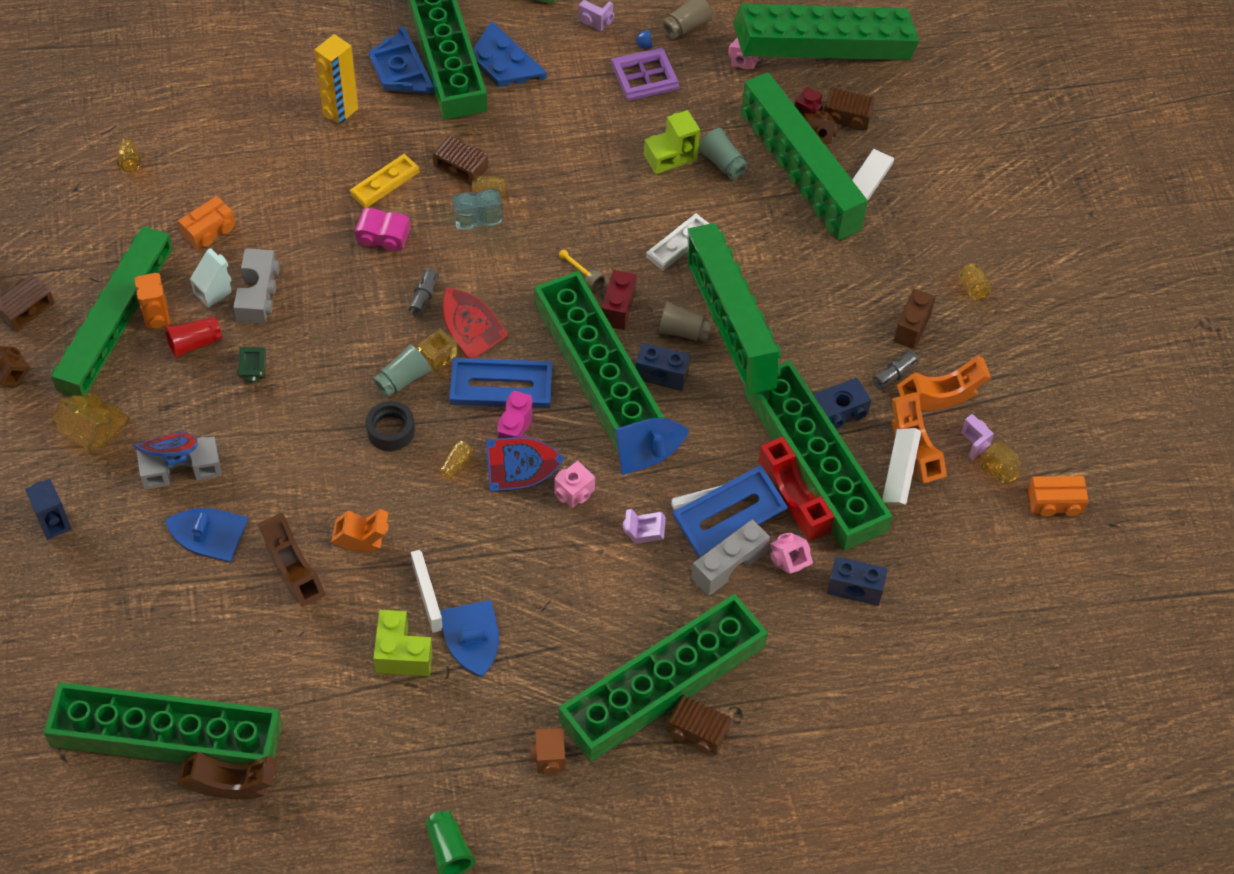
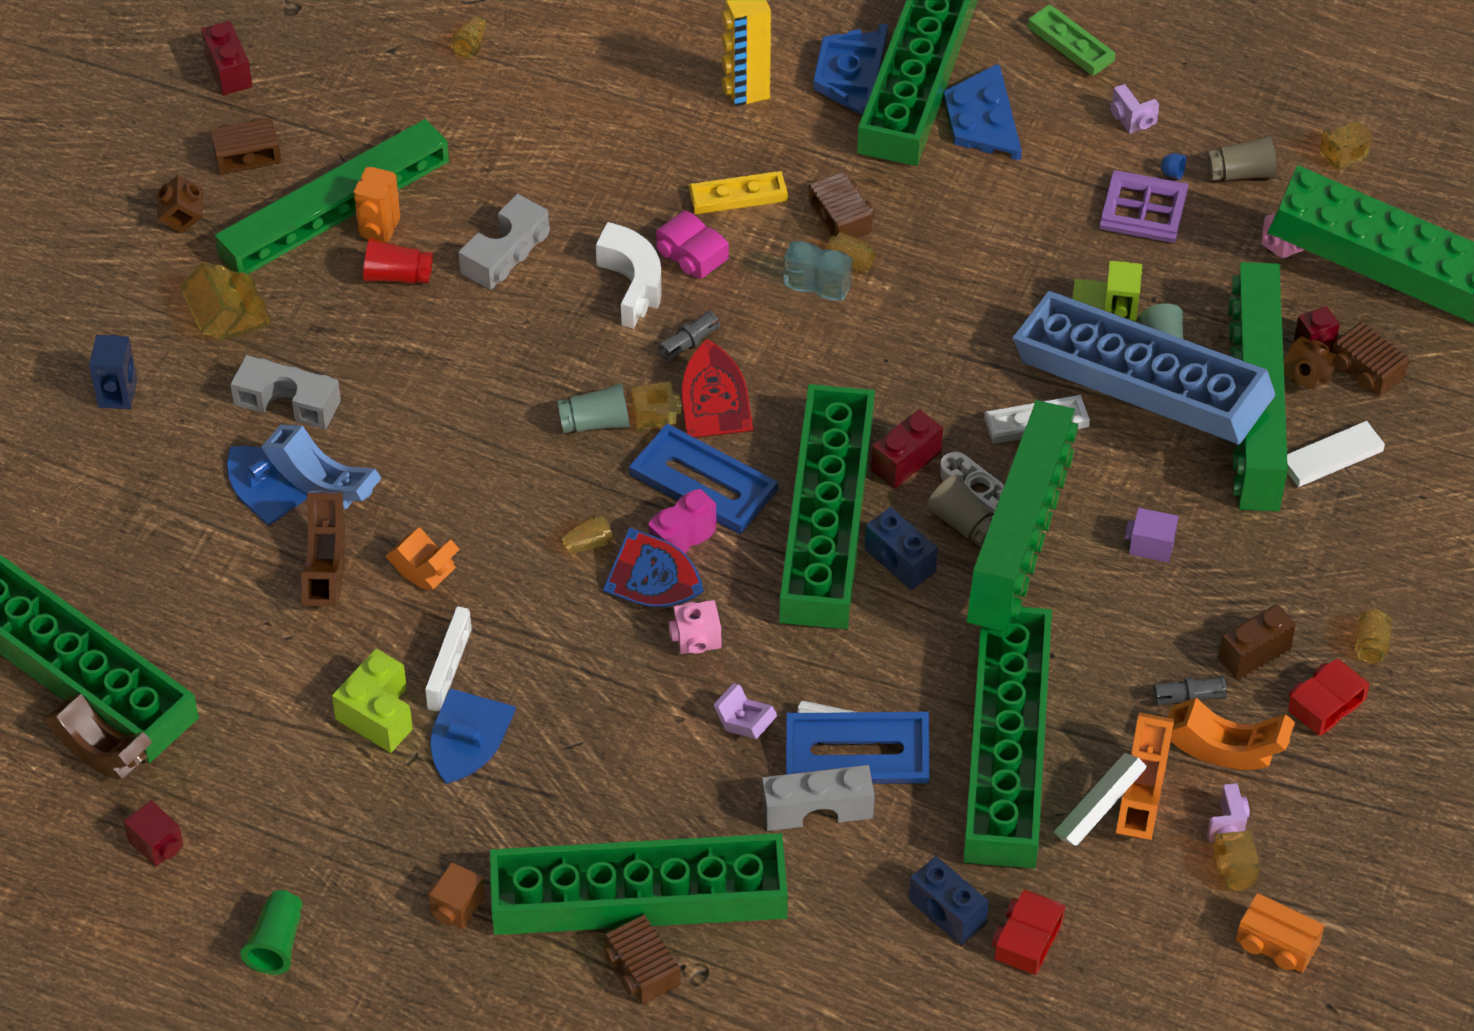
camera: 35 degrees right, 5 degrees down
(174, 444) = (280, 366): shield -> none
(206, 223) = (501, 148): orange brick -> none
(211, 279) = (457, 210): light aqua slope -> none
(243, 509) = (311, 470): none -> medium blue arch
(252, 363) = (439, 324): dark green bracket -> none
(314, 822) = (153, 833): none -> dark red brick
(356, 257) = (634, 257): none -> white arch
(391, 442) = (536, 444): black tyre -> none
(593, 278) = (897, 407): dark tan hinge -> none
(648, 442) = (815, 622): blue shield -> none
(671, 295) = (973, 474): none -> white beam
(735, 175) = (1144, 367): none -> medium blue brick
(790, 553) = (887, 840): bright pink brick -> none
(805, 281) = (1152, 534): none -> medium lavender brick
(808, 511) = (952, 761): red arch -> none
(848, 394) = (1100, 685): dark blue brick -> none
(917, 574) = (1029, 931): none -> red brick
(977, 331) = (1327, 696): none -> red brick

